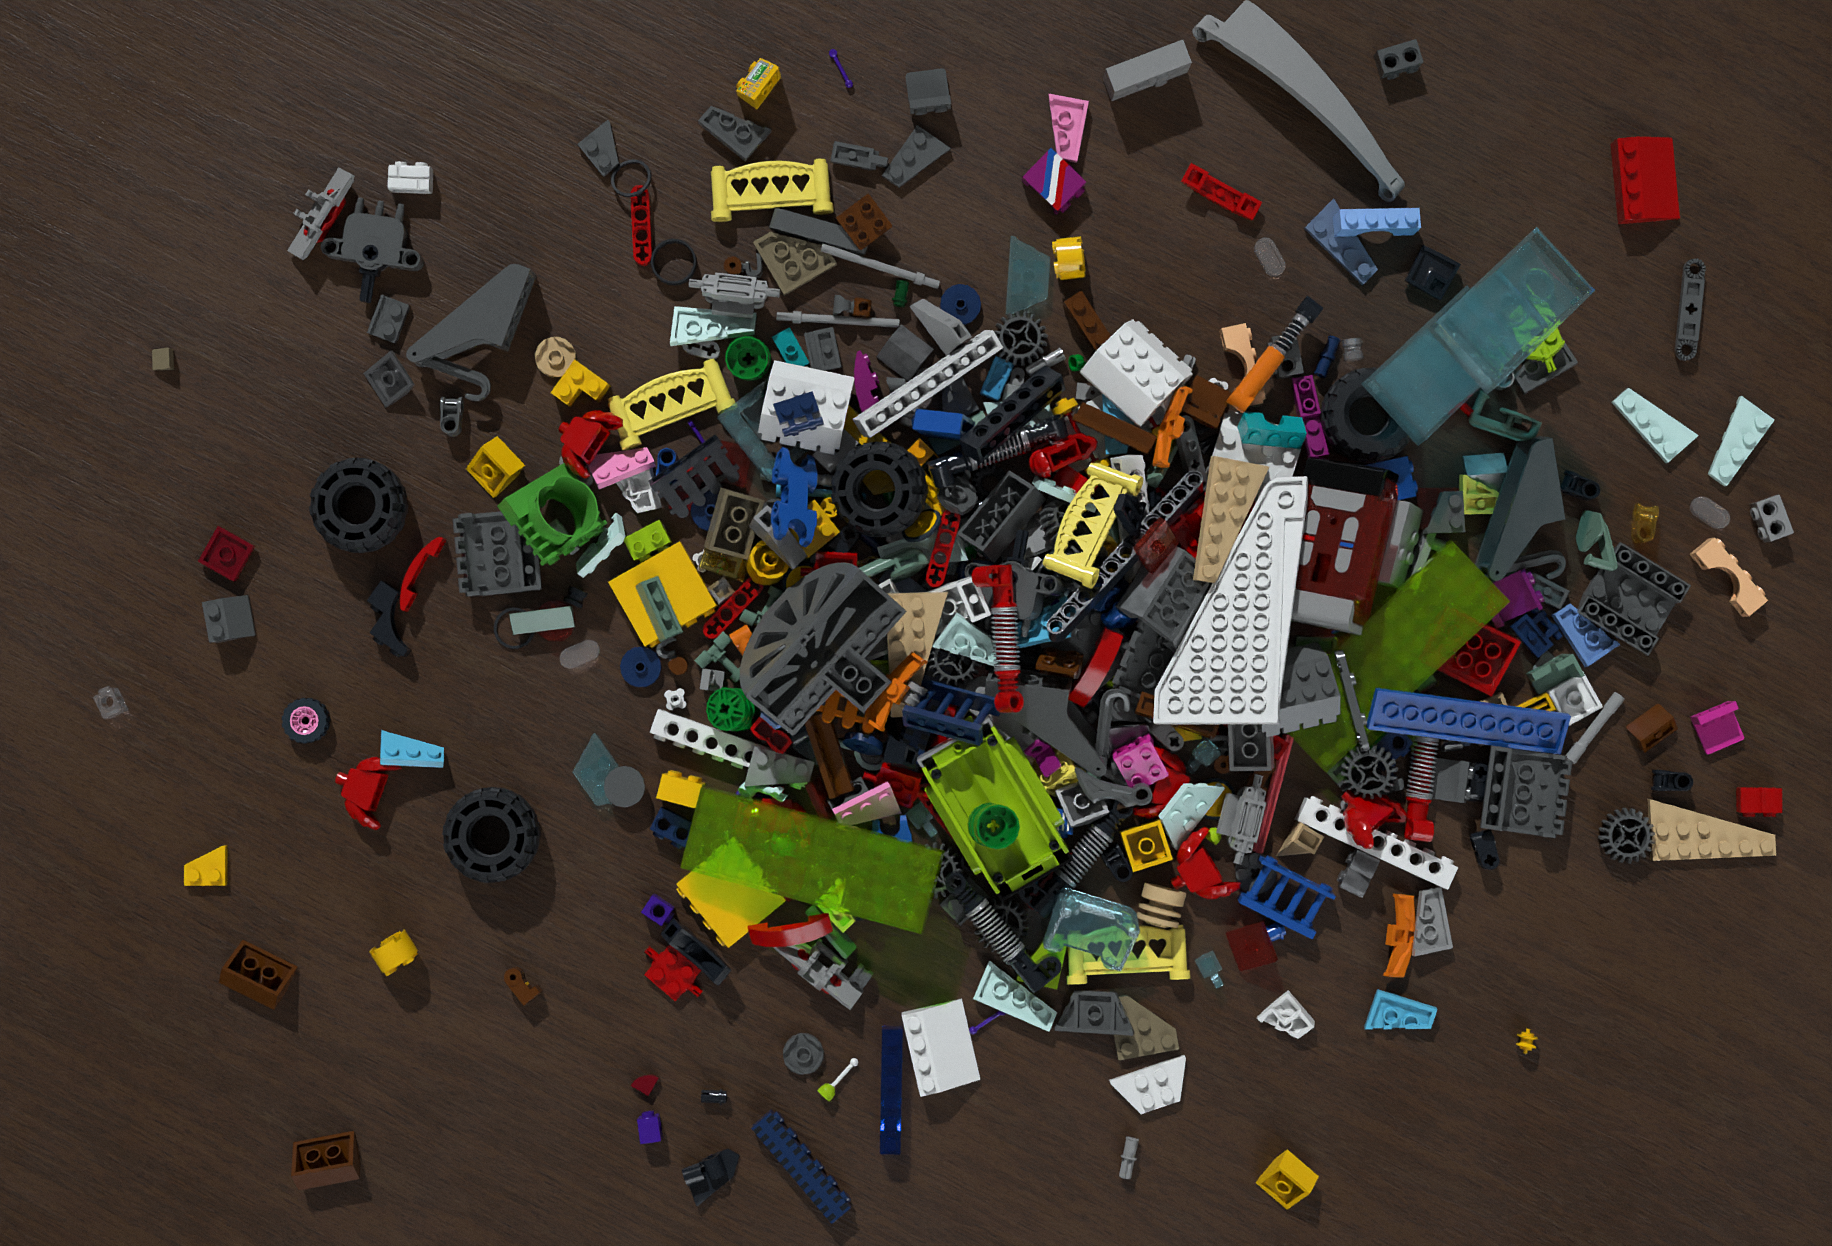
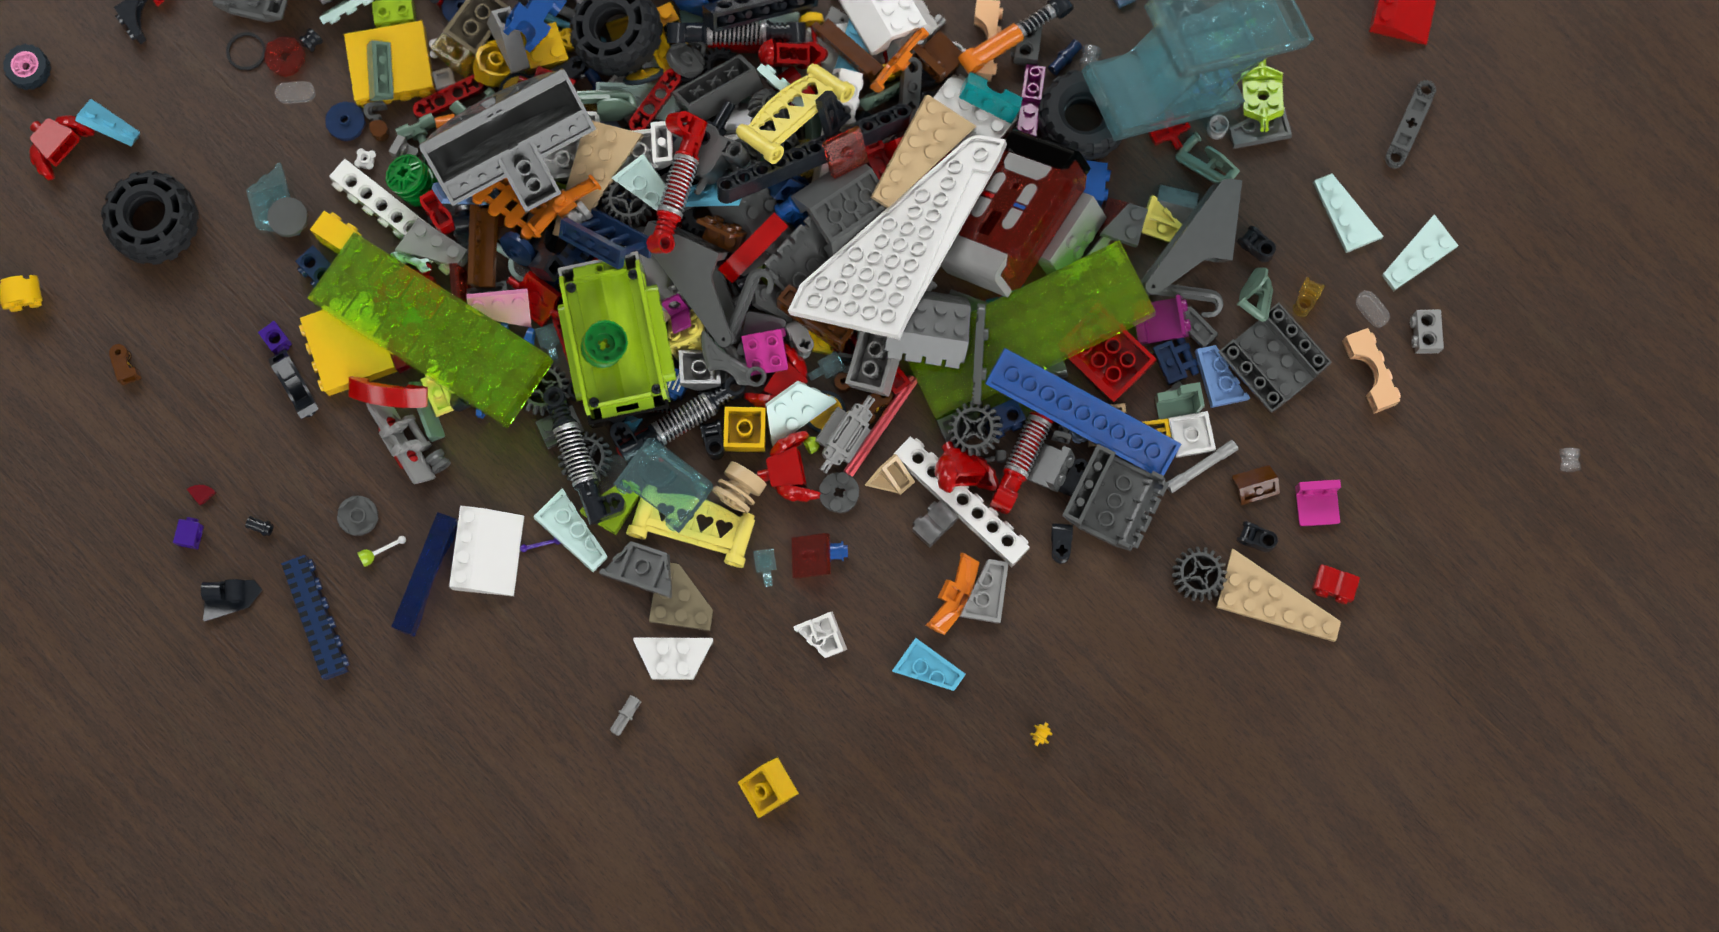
camera: 15 degrees right, 10 degrees down
(542, 620) = (272, 47): sand green slope -> none
(672, 972) = (267, 400): red plate -> none
(1286, 917) = (840, 524): blue fence -> none

